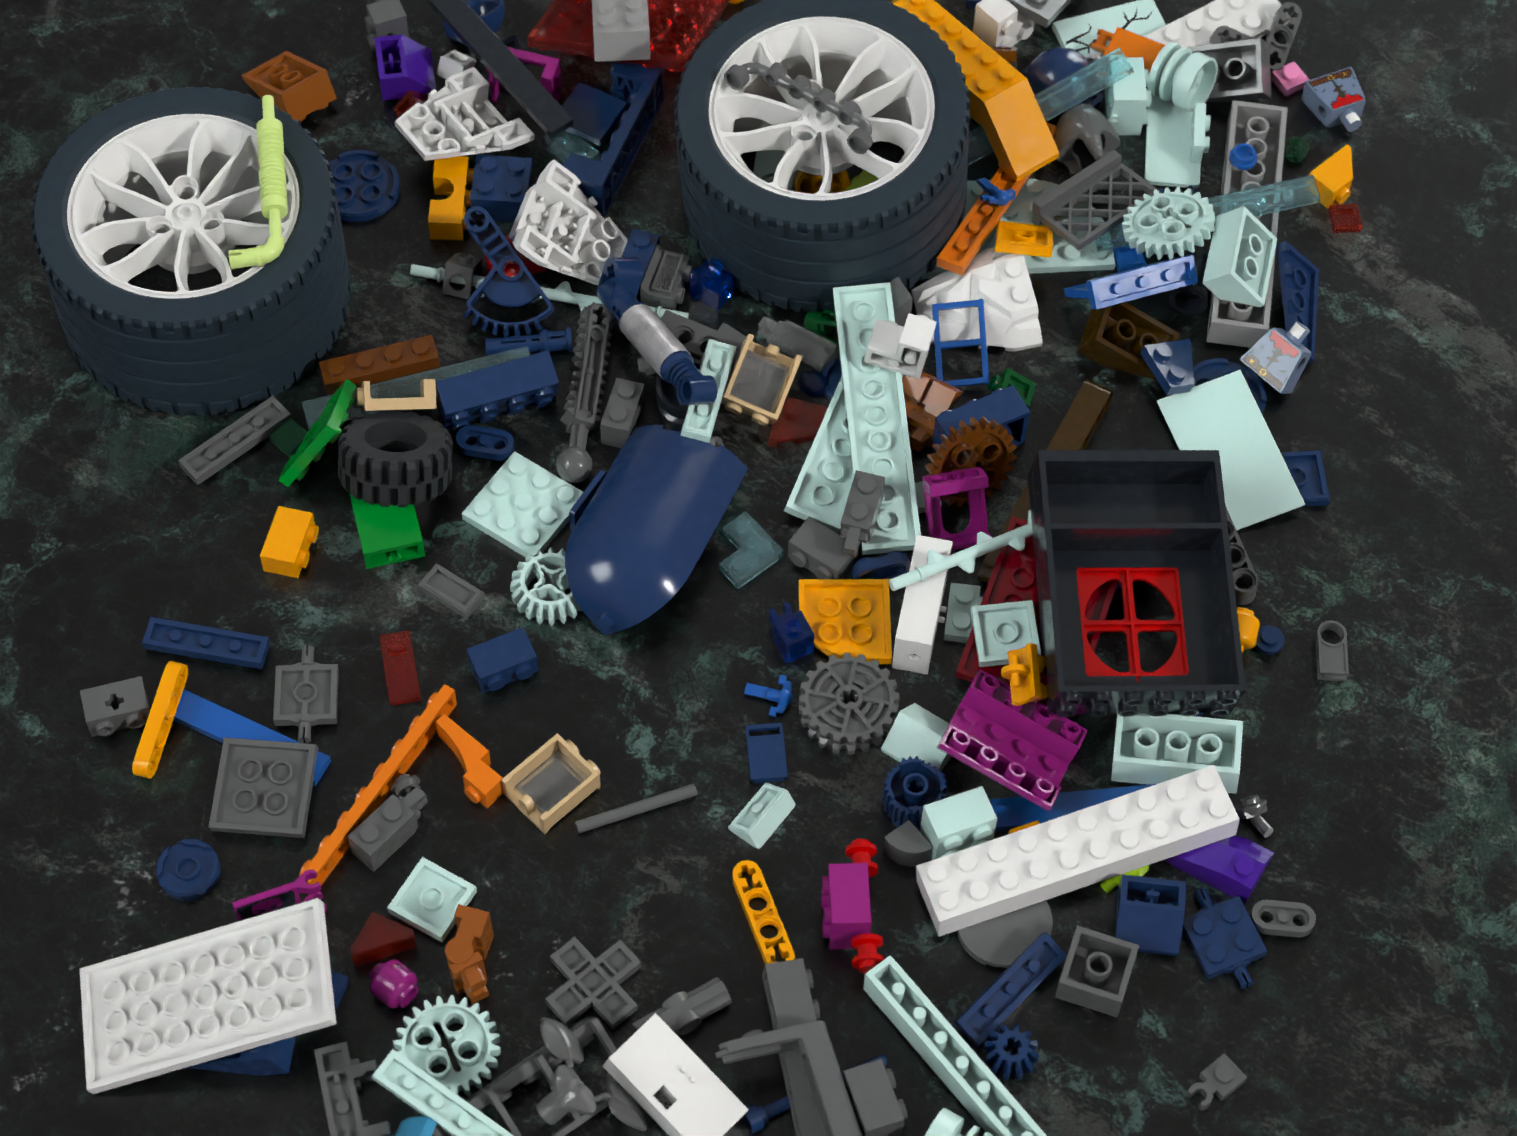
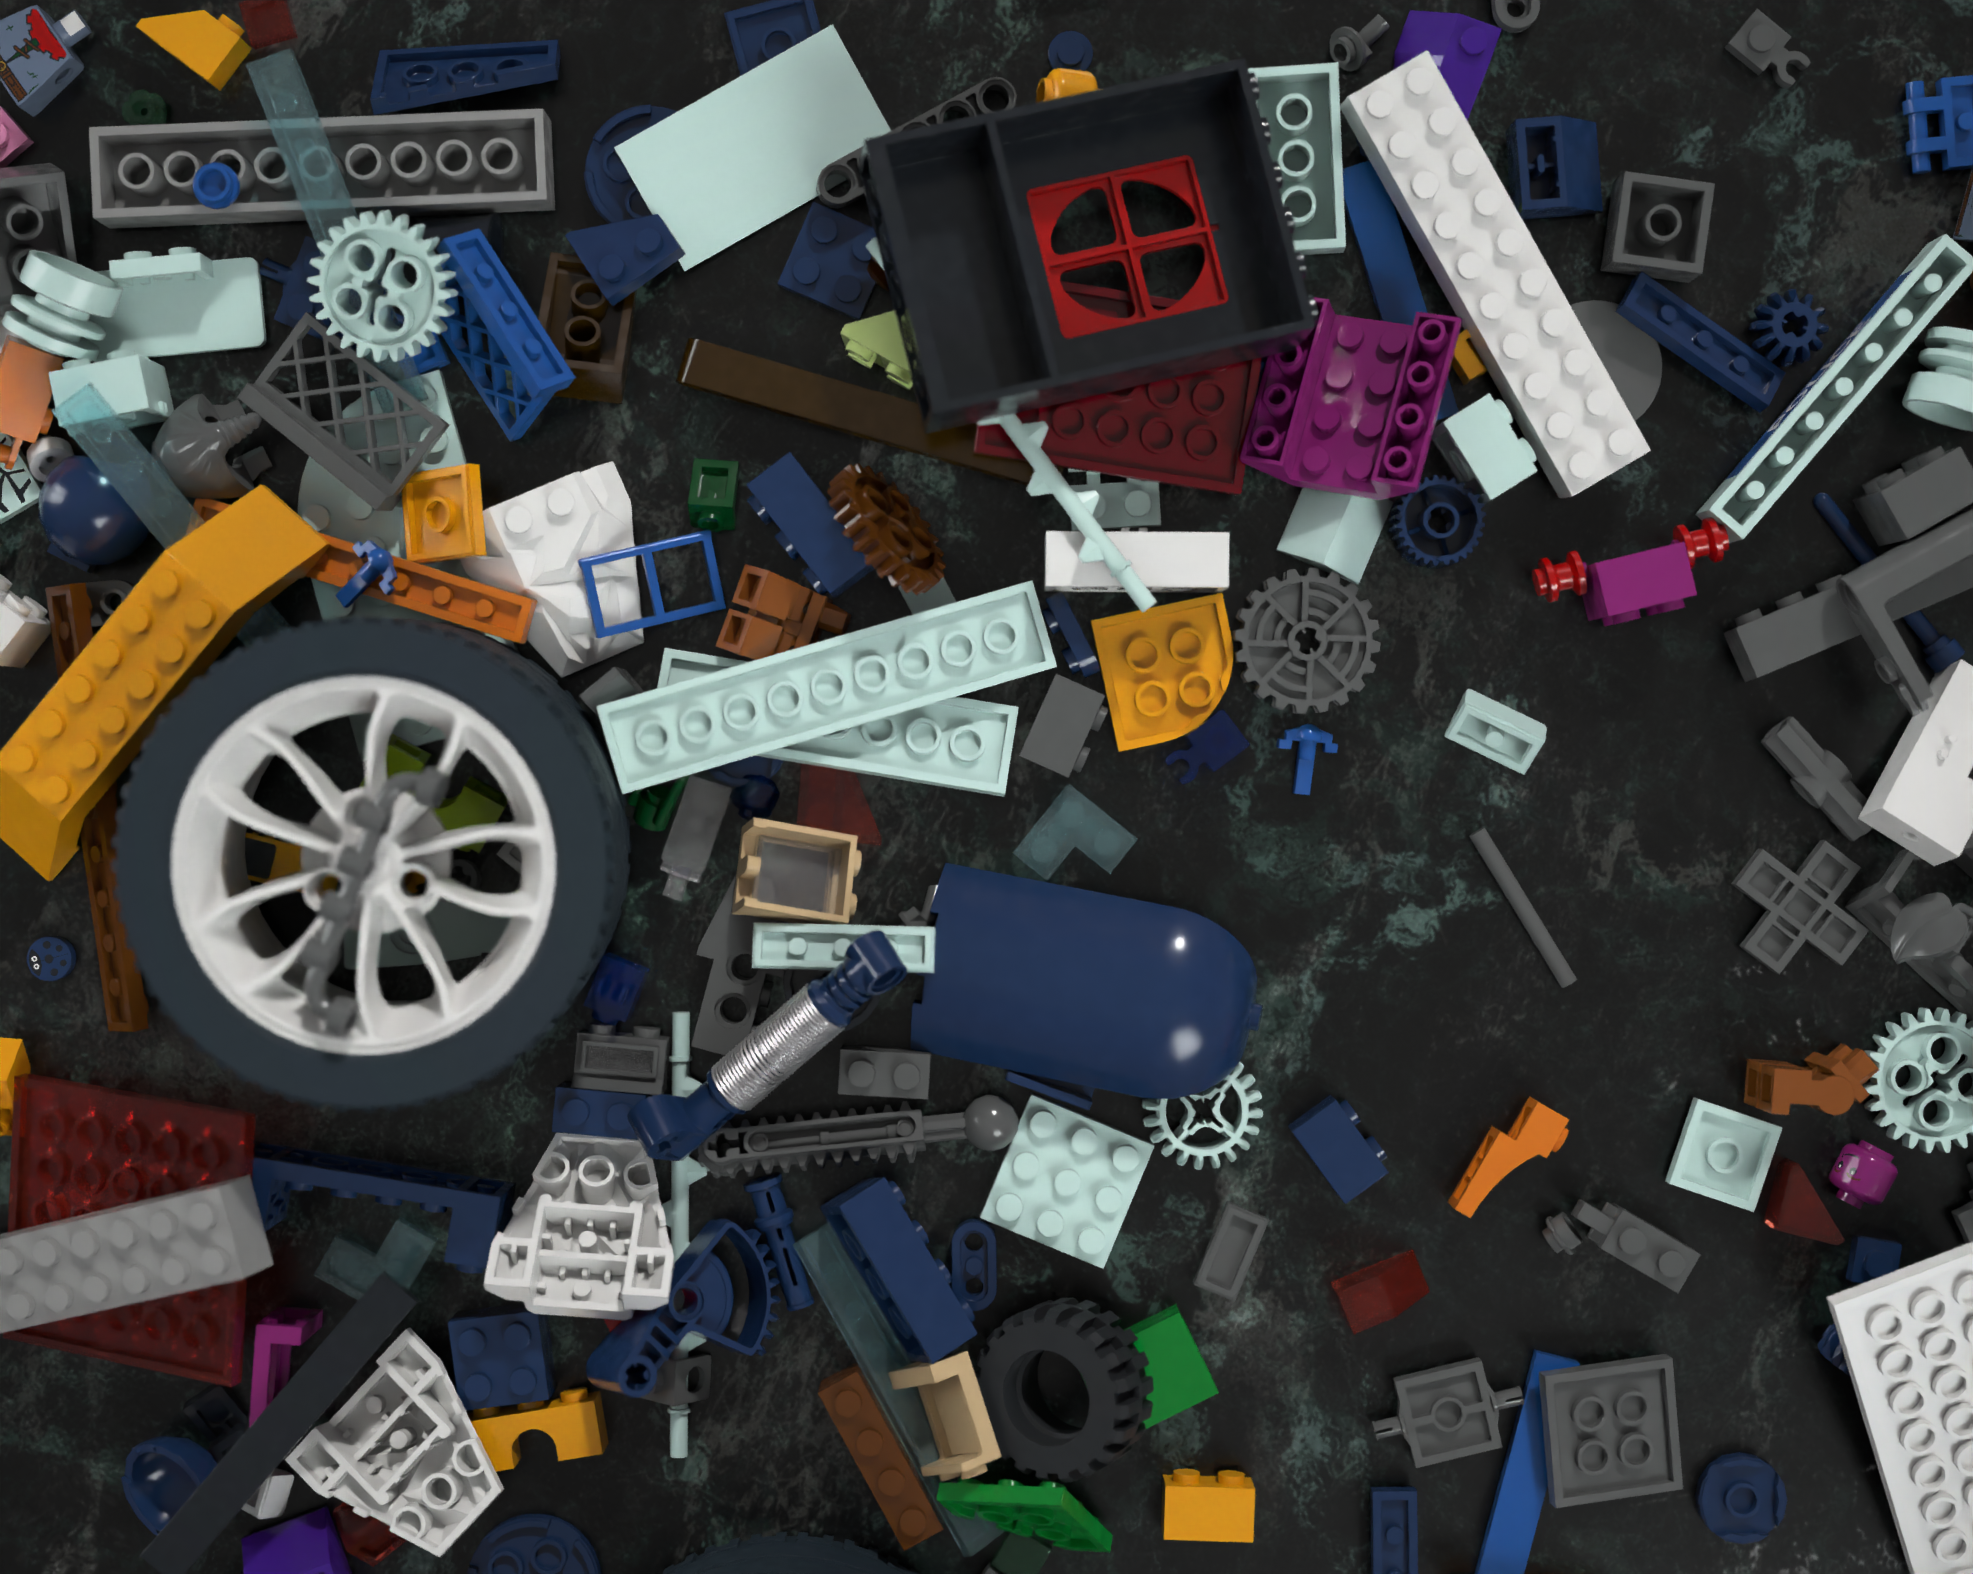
camera: 100 degrees left, 30 degrees up
(279, 897) = (1783, 1345): magenta flag -> none
(371, 797) = (1591, 1278): orange plate -> none
(551, 782) = (1515, 1031): window -> none
(593, 113) = (328, 1251): dark blue tile -> none
(766, 754) = (1401, 743): dark blue piece -> none
(767, 916) = (1651, 694): light orange beam -> none
(861, 510) = (1013, 676): dark grey hinge -> none
(901, 347) = (724, 666): white brick -> none
(907, 846) = (1513, 519): dark grey brick -> none
(970, 480) = (945, 547): magenta panel -> none
(1003, 629) = (1178, 429): light aqua plate -> none
(1024, 675) = (1255, 389): light orange hips -> none
(1223, 937) = (1556, 64): dark blue plate -> none
(1240, 258) = (427, 166): light aqua slope -> none
(1280, 357) = (579, 90): torso -> none

